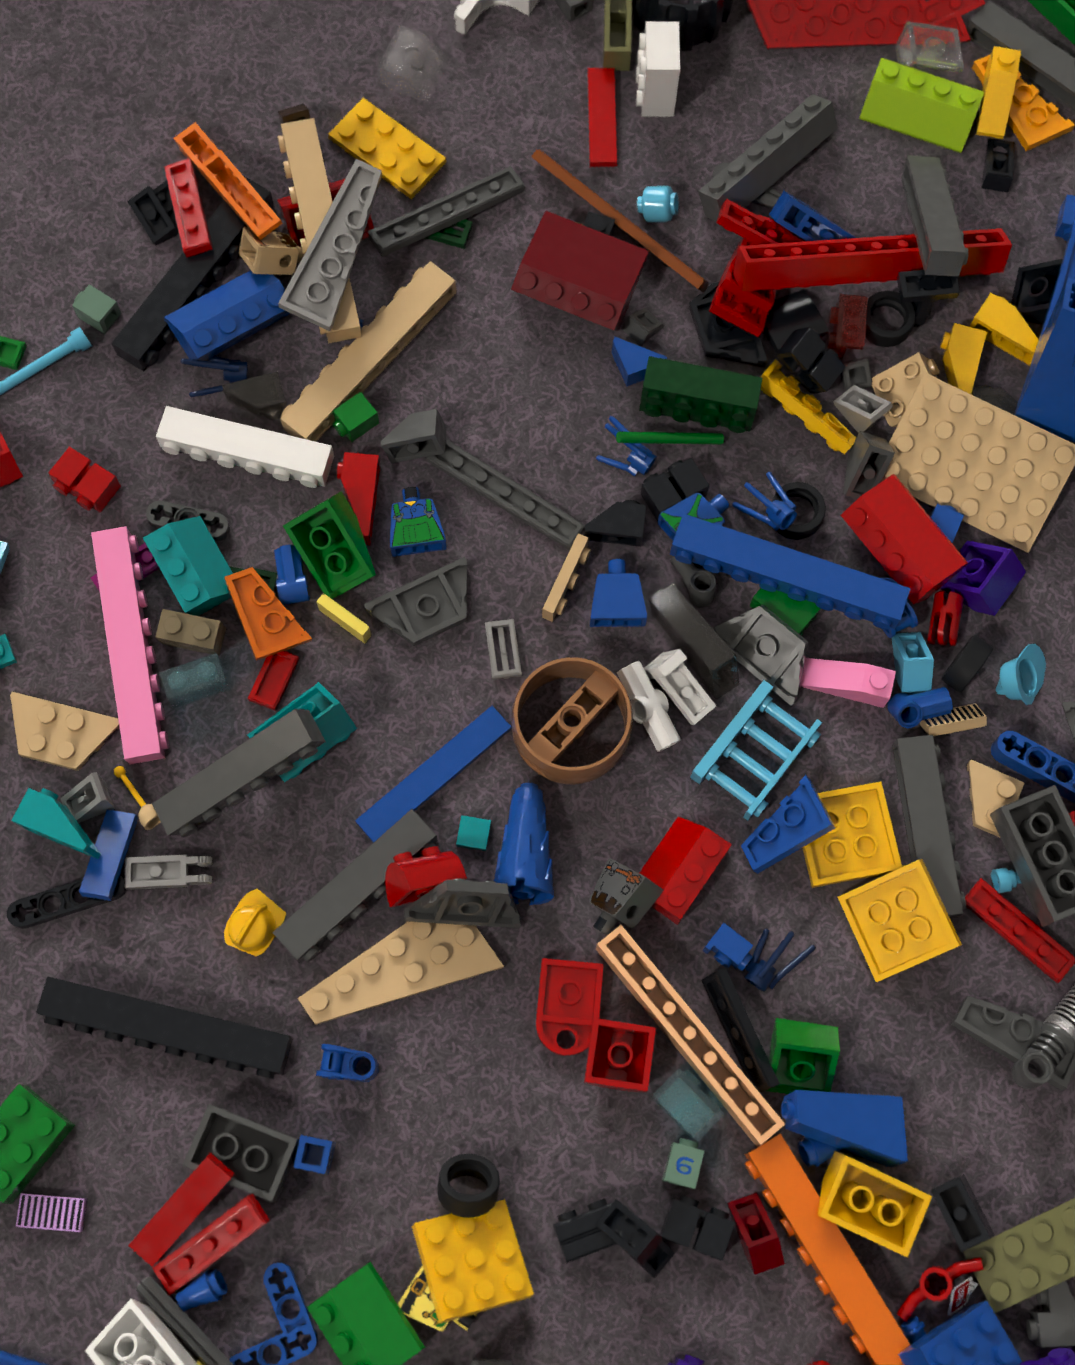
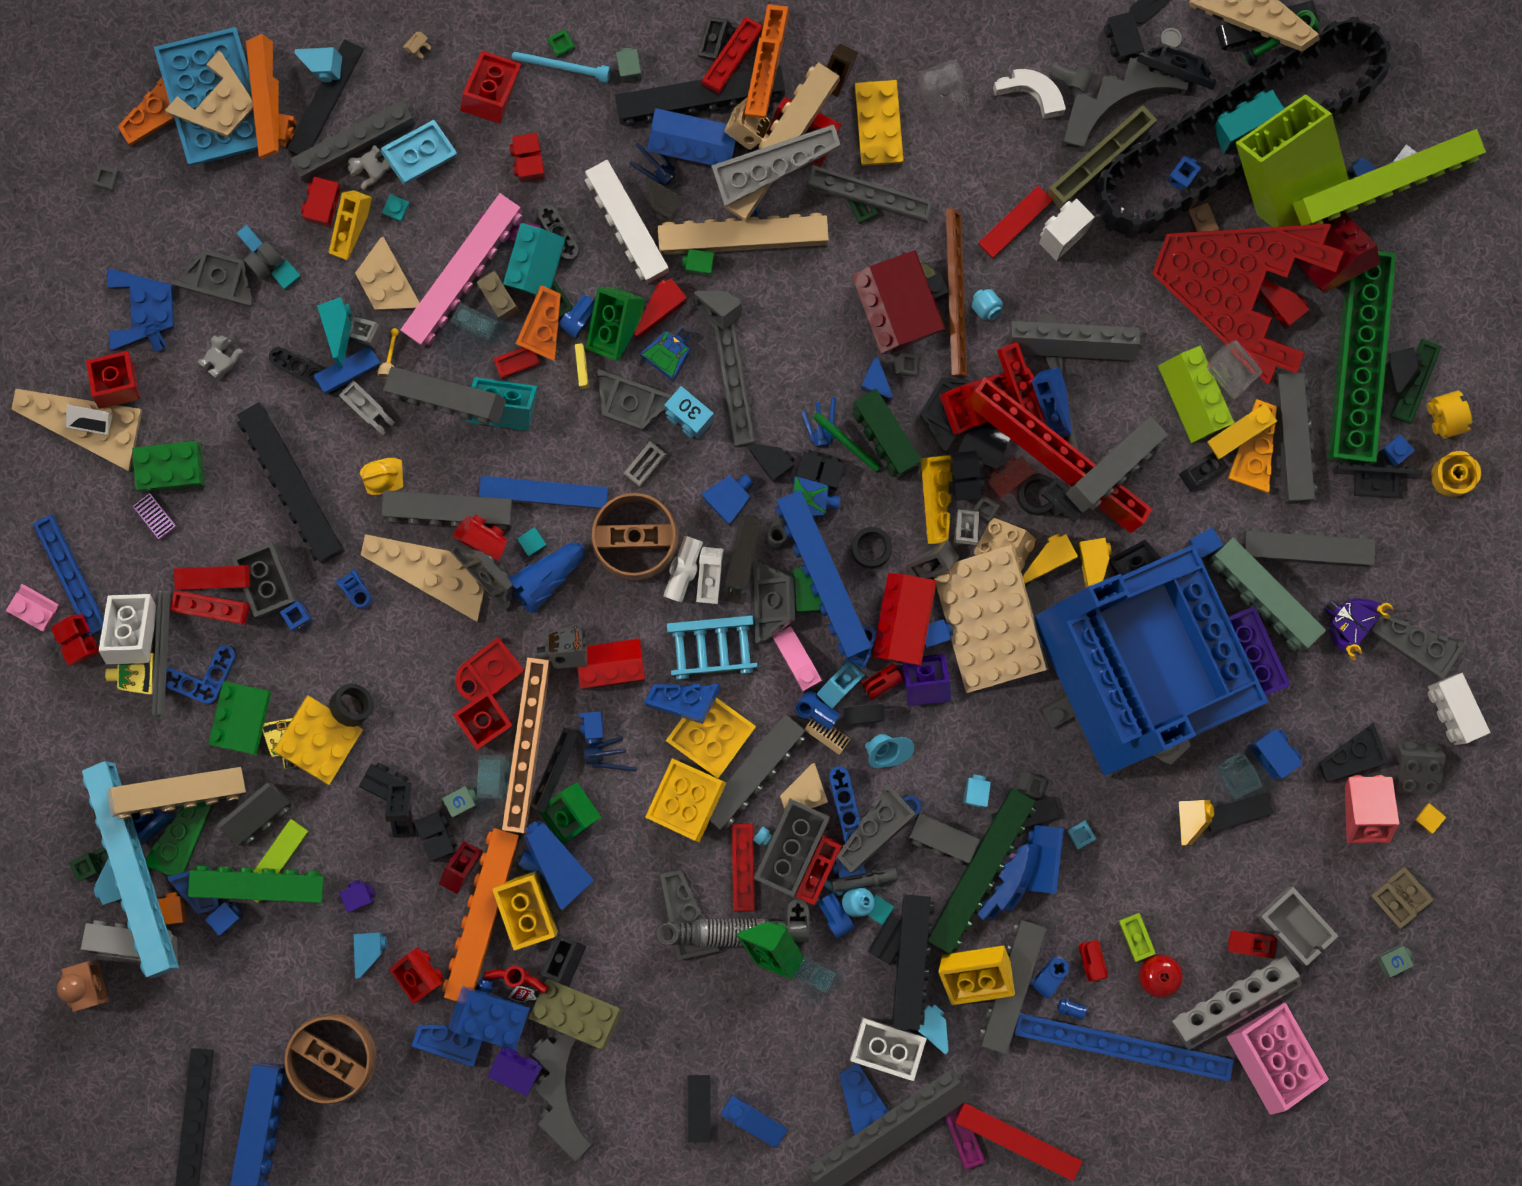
camera: 50 degrees right, 10 degrees up
(203, 1290) = (186, 624): blue cone -> none
(497, 555) = (689, 413): none -> medium azure brick
(567, 578) = (714, 461): tan plate -> none
(780, 513) = (854, 538): blue plant -> none

